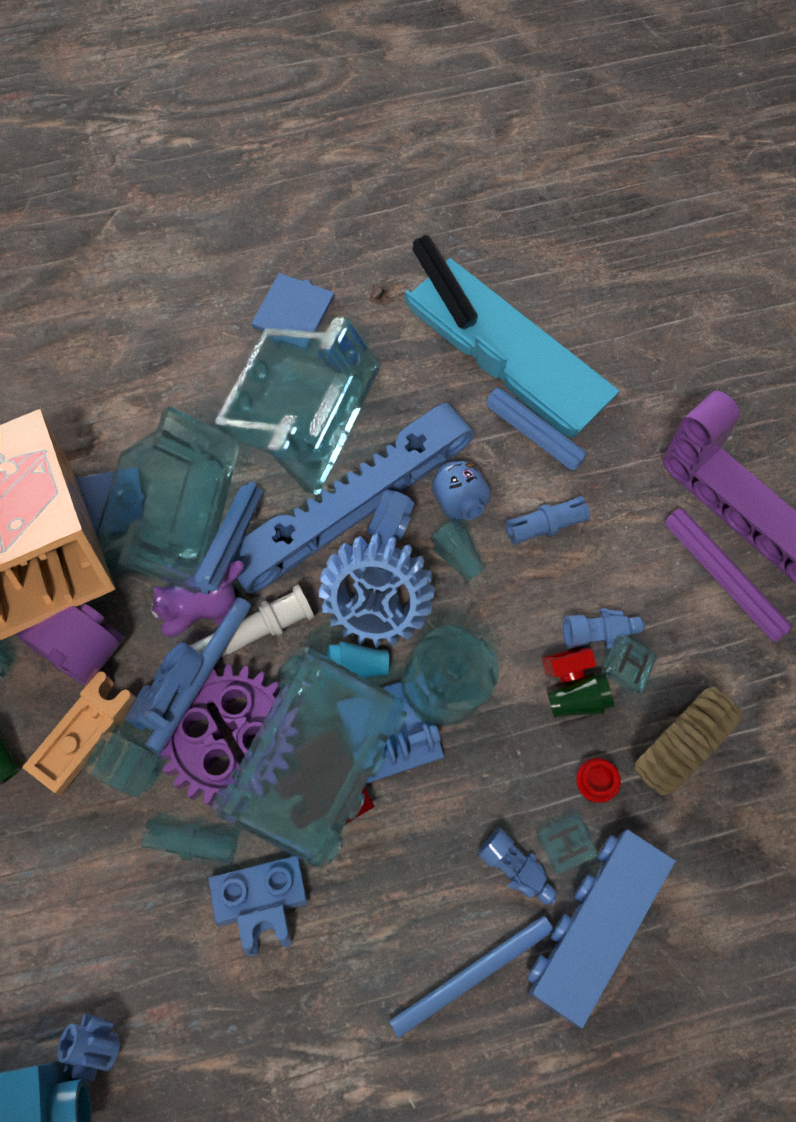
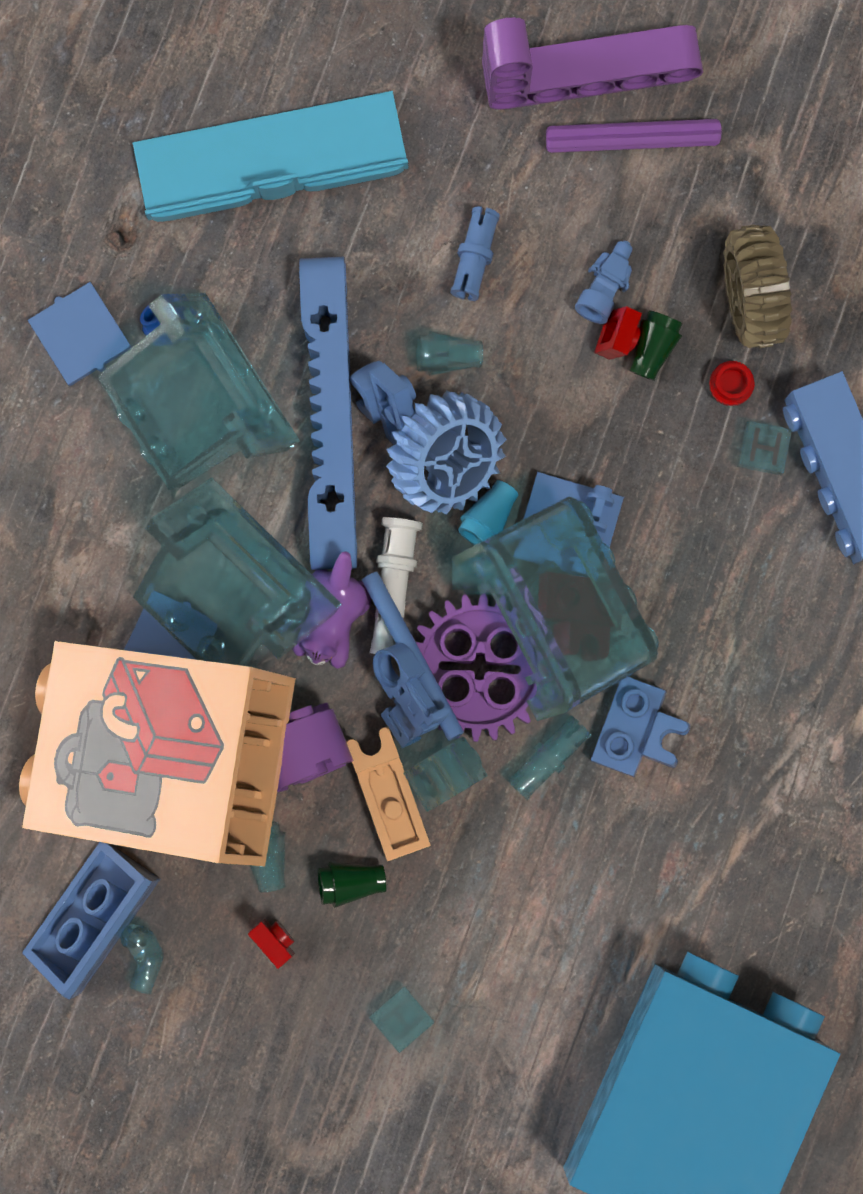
camera: 55 degrees left, 15 degrees up
(88, 1047) = (663, 936): medium blue gear -> none
(228, 538) = (303, 548): medium blue axle -> none
(429, 672) = (559, 467): clear light blue brick -> none
(444, 282) = (161, 168): black axle -> none
(461, 489) = (393, 310): medium blue head -> none
(471, 976) = (812, 598): medium blue bar -> none
(523, 871) = (763, 497): medium blue piece -> none
(536, 428) = (375, 196): medium blue axle -> none
(629, 664) = (654, 282): clear light blue tile -> none

